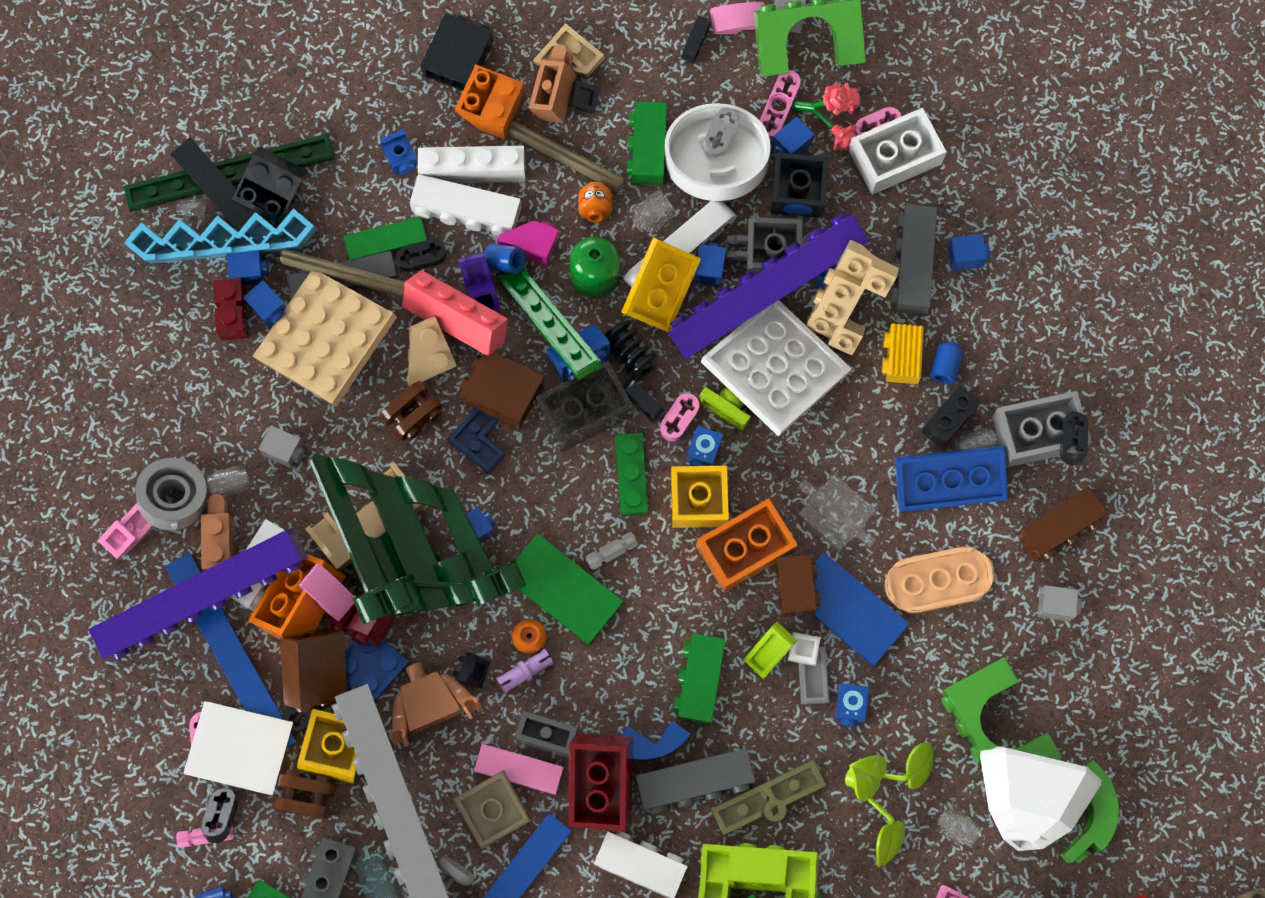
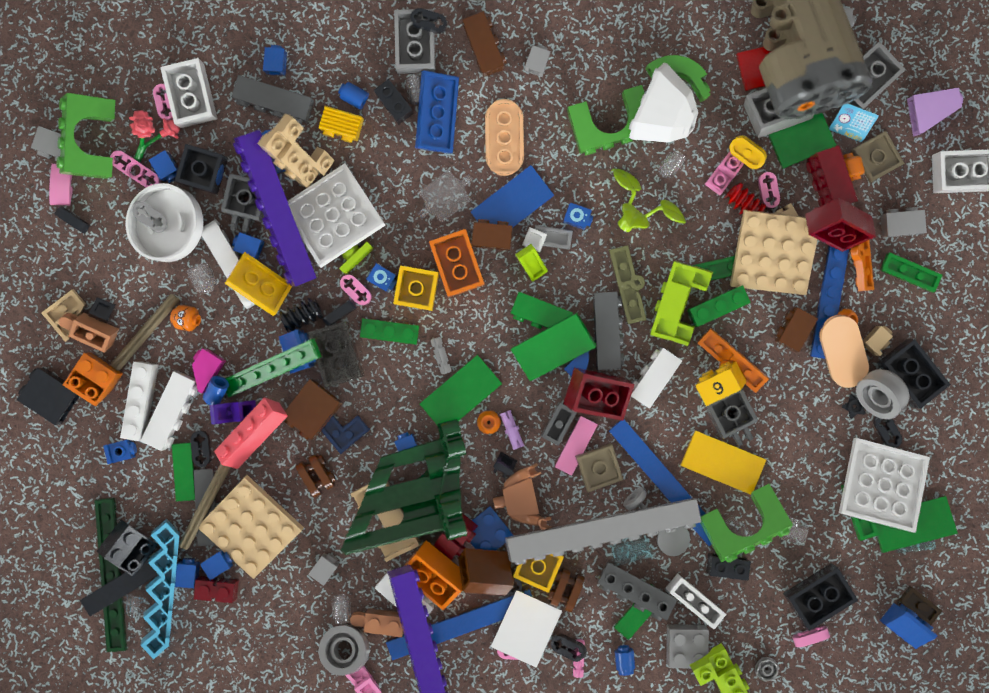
camera: 80 degrees left, 15 degrees up
(327, 592) = (437, 555): bright pink slope -> none
(427, 352) = (275, 456): tan wing -> none
(595, 274) = (243, 327): green cylinder -> none
(647, 143) = (147, 271): green brick -> none
(656, 704) = (553, 347): none -> green tile

